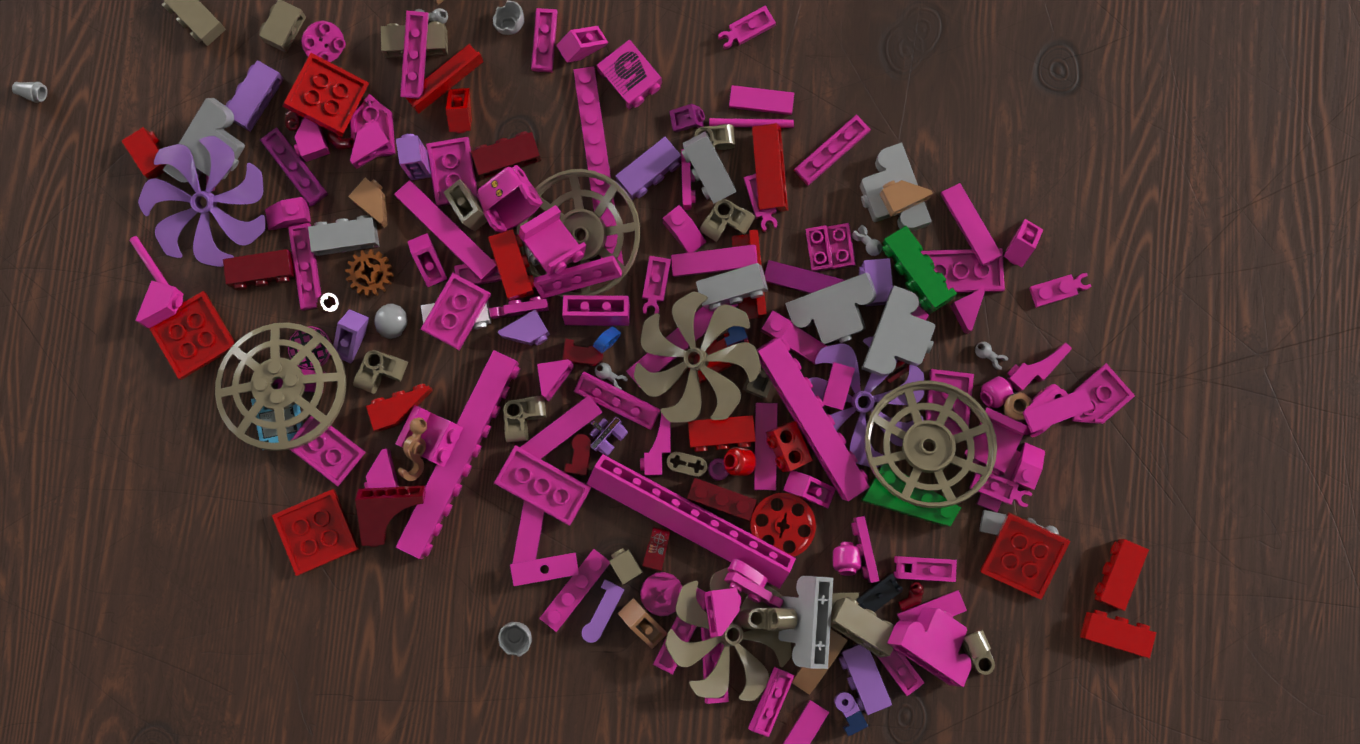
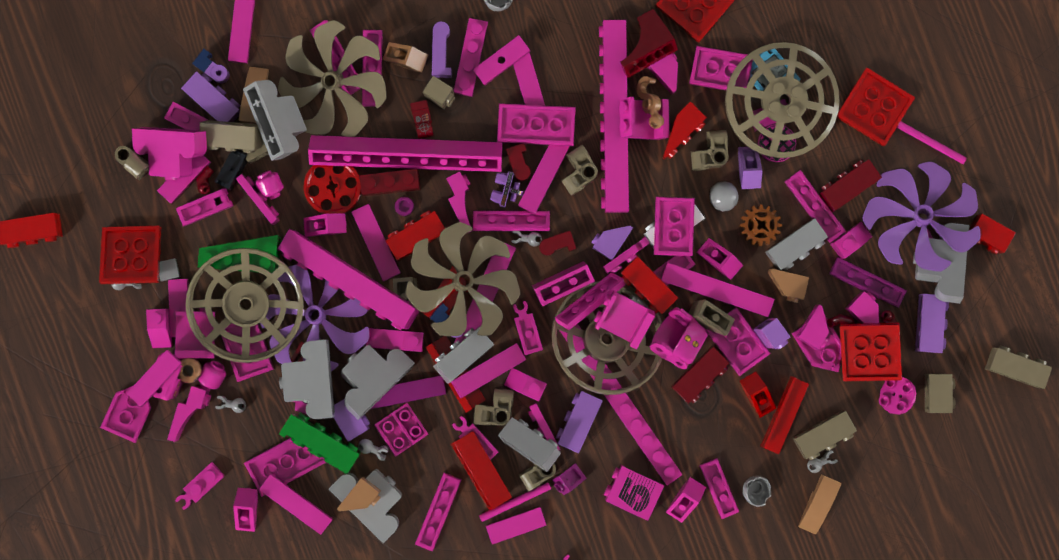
camera: 155 degrees right, 5 degrees up
(159, 304) = (912, 117): dark pink slope -> none
(320, 303) = (786, 181): bush -> none
(414, 54) = (816, 420): dark pink tile -> none
(552, 376) = (571, 213): dark pink slope -> none
(607, 339) = (542, 264): blue beam -> none
(660, 593) = (402, 87): dark pink tile -> none
(688, 459) = (433, 202): dark tan beam -> none
(721, 609) = (346, 94): dark pink slope -> none
(739, 461) = (390, 219): red head -> none
(748, 572) = (340, 132): dark pink beam -> none
(755, 592) = (328, 122): dark pink plate -> none
(768, 619) = (307, 106): dark tan piece -> none
(771, 702) = (276, 46): dark pink tile -> none
(794, 443) = (355, 253): red brick -> none
(838, 386) = (340, 316): dark pink tile -> none
(967, 310) = (266, 432): dark pink slope -> none
(1001, 489) = (172, 298): dark pink plate -> none
(1120, 574) = (48, 277): red brick -> none

